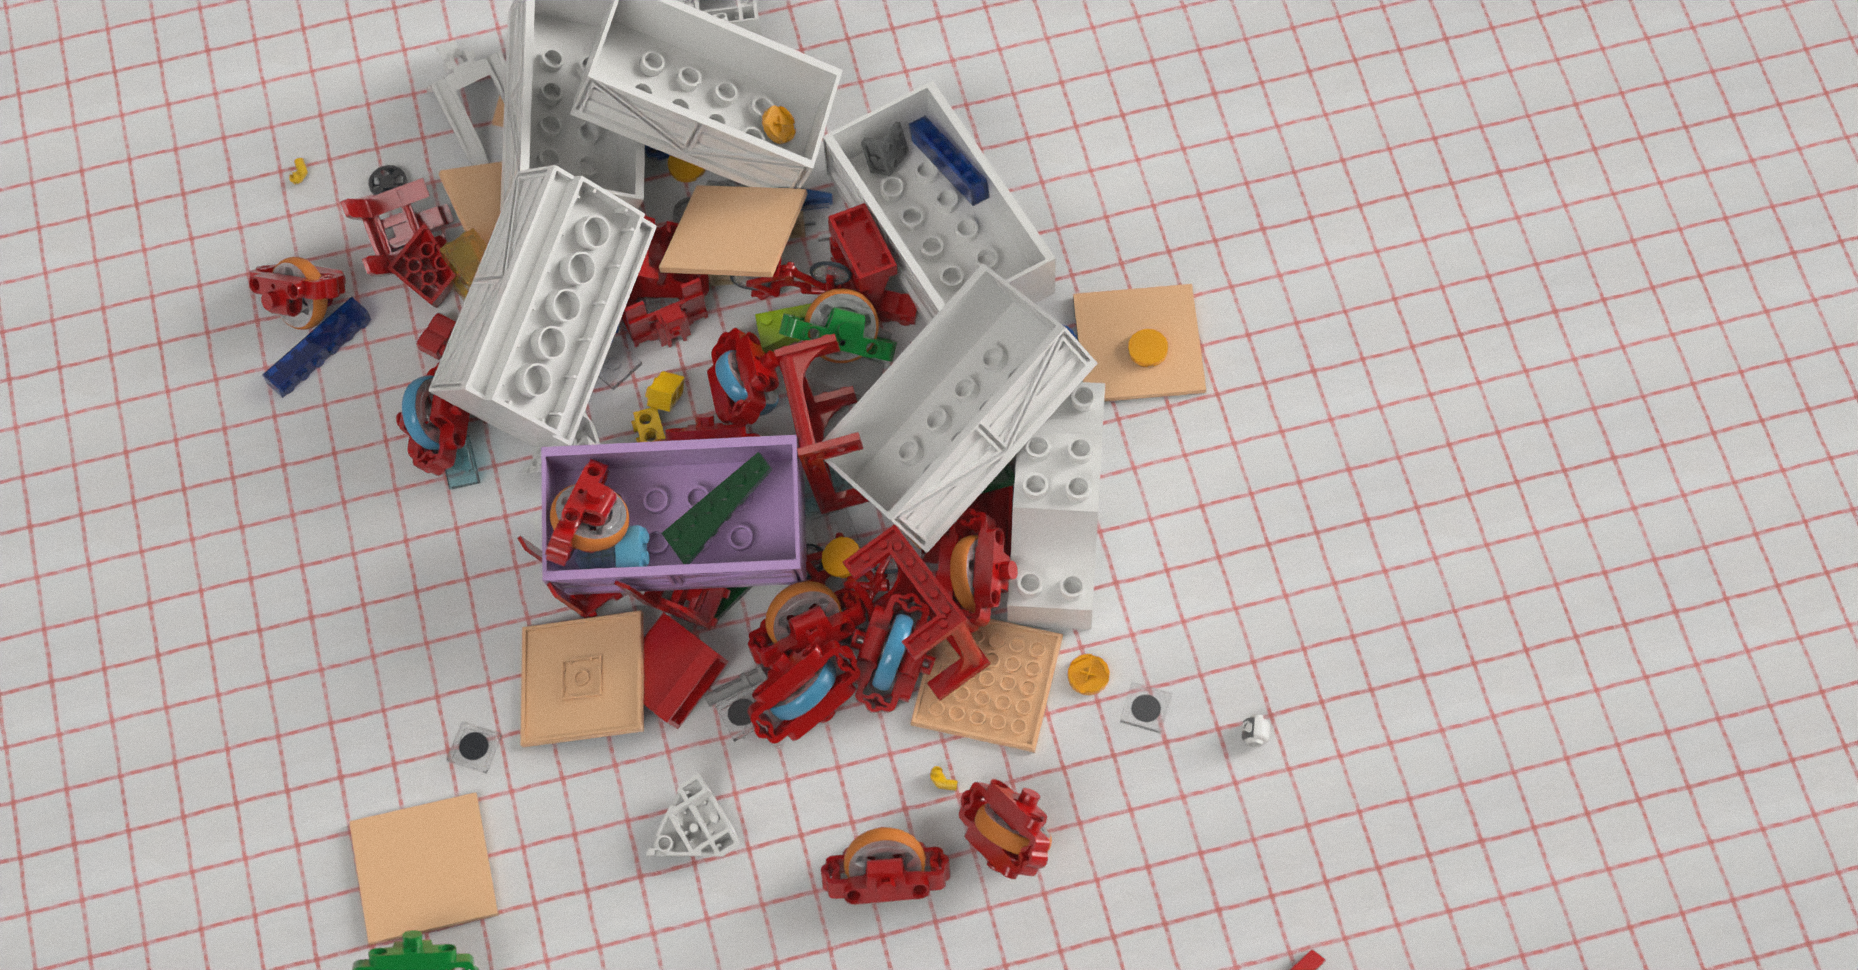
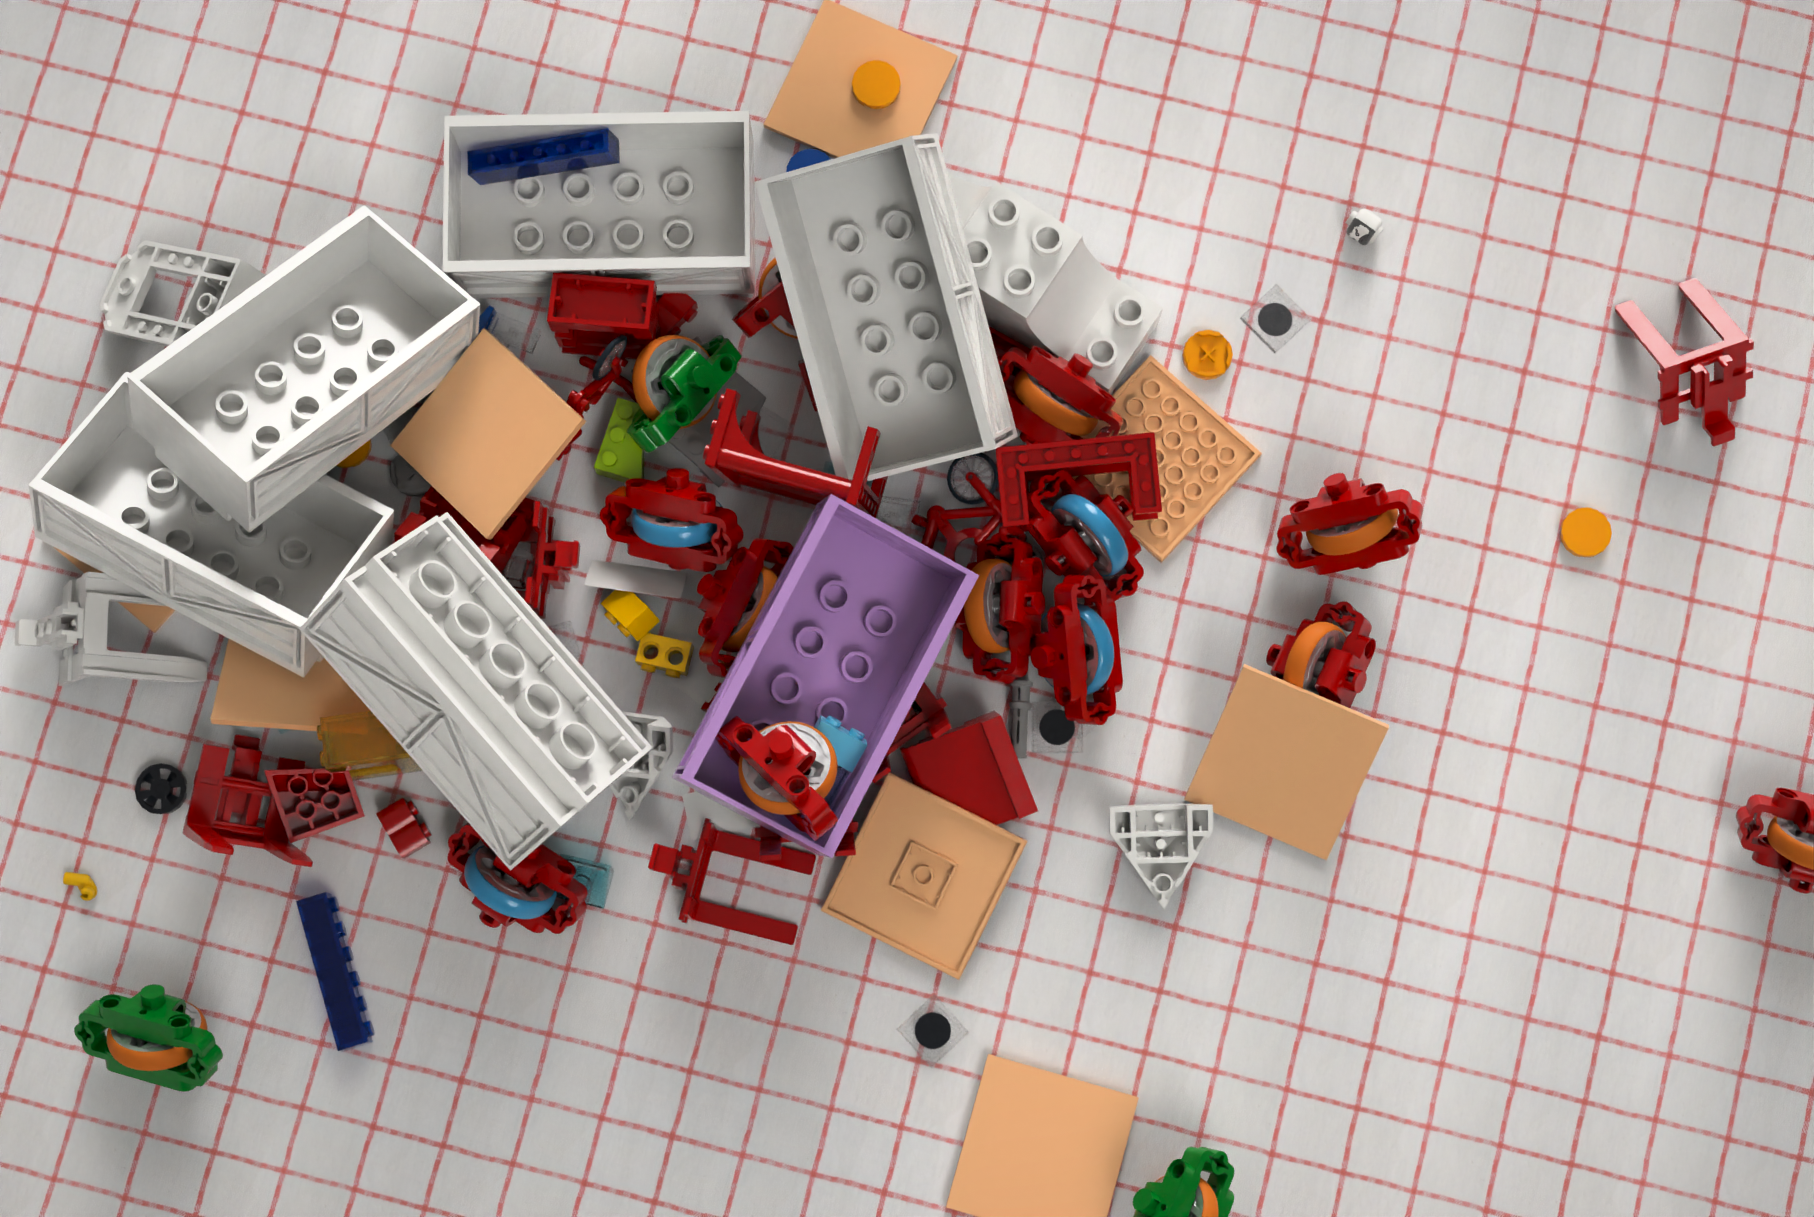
camera: 65 degrees left, 15 degrees up
(213, 257) = (151, 1038): none -> green piece
(297, 290) = (254, 958): red piece -> none
(498, 506) = (668, 859): none -> red piece
(692, 383) = (636, 579): none -> white sticker
(704, 519) = (858, 650): dark green wing -> none
(778, 124) = (379, 313): light orange tile -> none
(800, 878) = (1286, 761): none -> light nougat tile
(835, 553) = (947, 529): light orange tile -> none
(886, 154) = (491, 223): dark grey bracket -> none
(940, 780) = (1242, 566): yellow arm -> none

